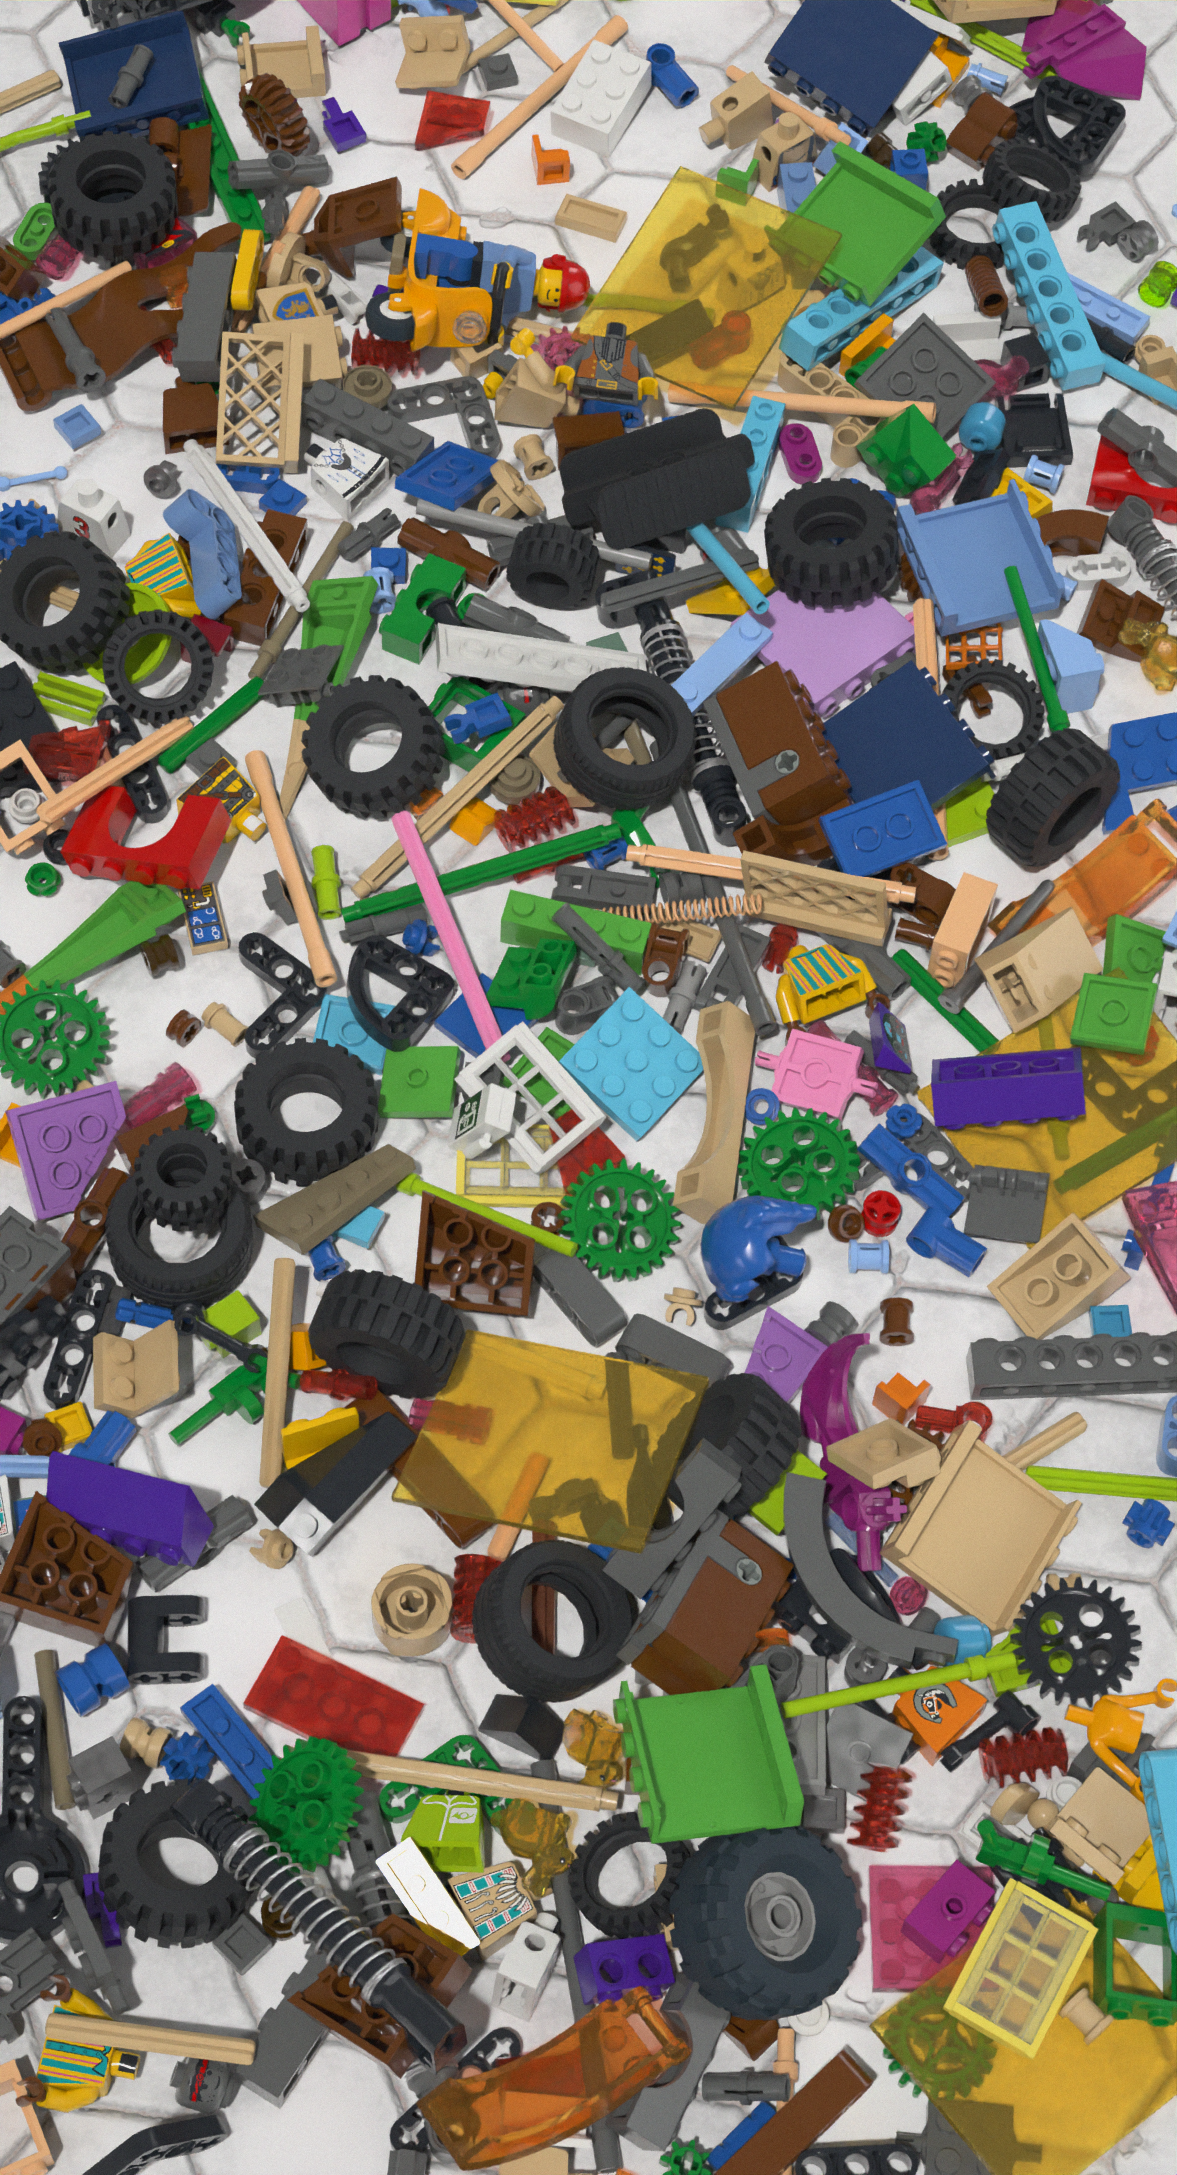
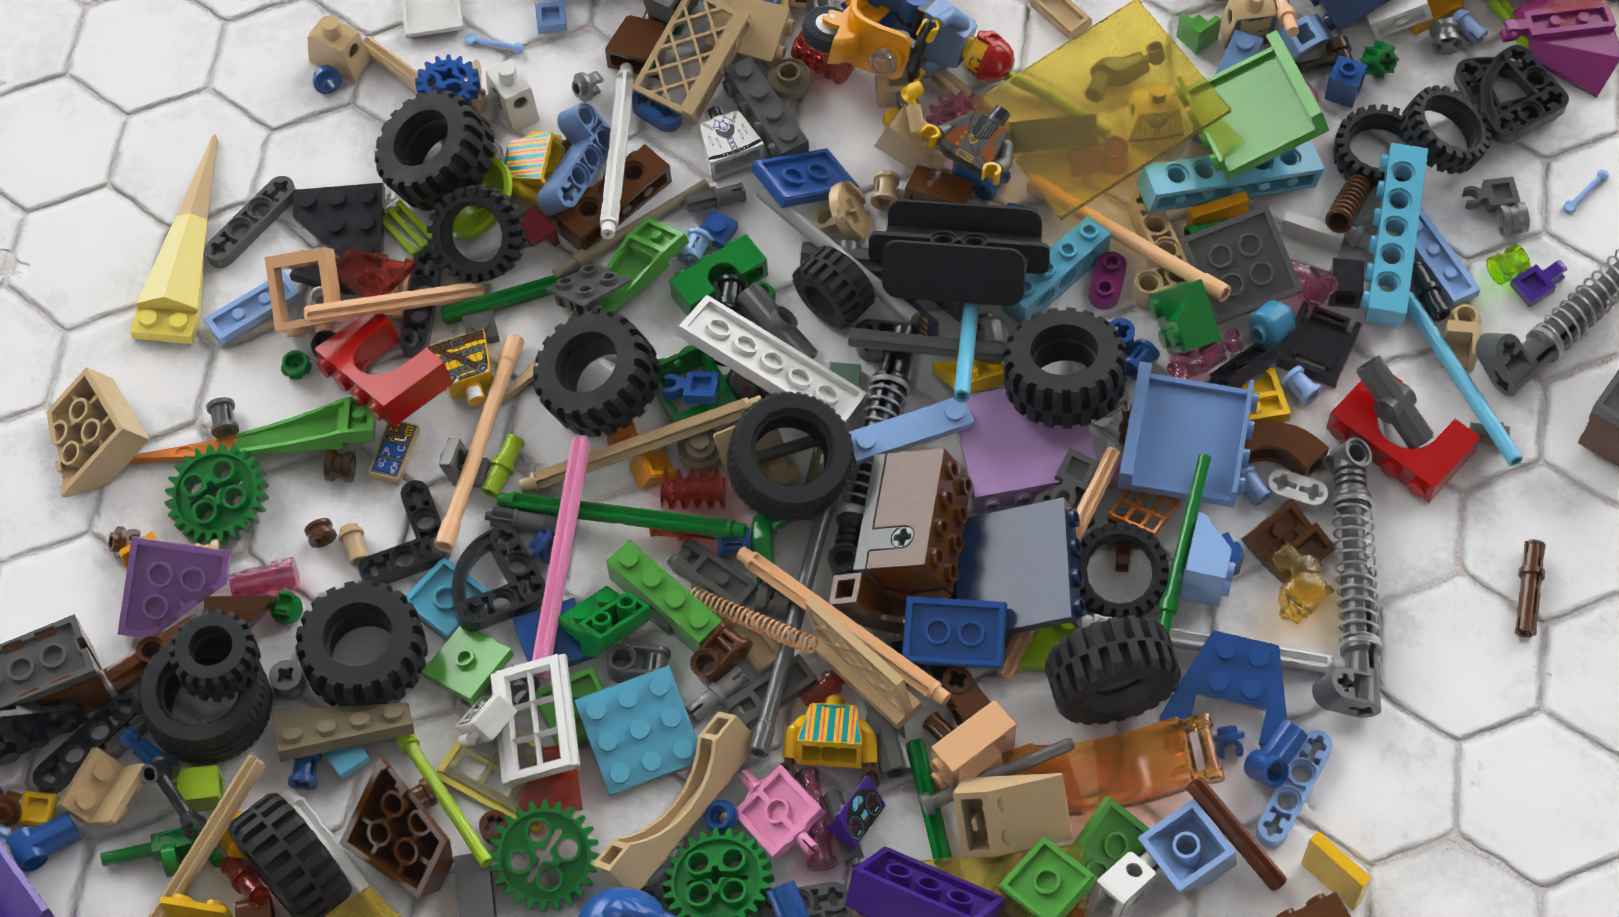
camera: 35 degrees right, 0 degrees up
(283, 498) = (669, 142): blue plate -> none
(449, 546) = (768, 238): reddish brown piece -> none
(462, 405) = (858, 125): dark grey beam -> none
(597, 949) = (663, 620): dark grey pin -> none
(898, 639) = (1074, 474): none -> dark grey plate
(901, 1129) = (826, 895): blue plate -> none
(981, 131) = (1435, 65): reddish brown brick -> none

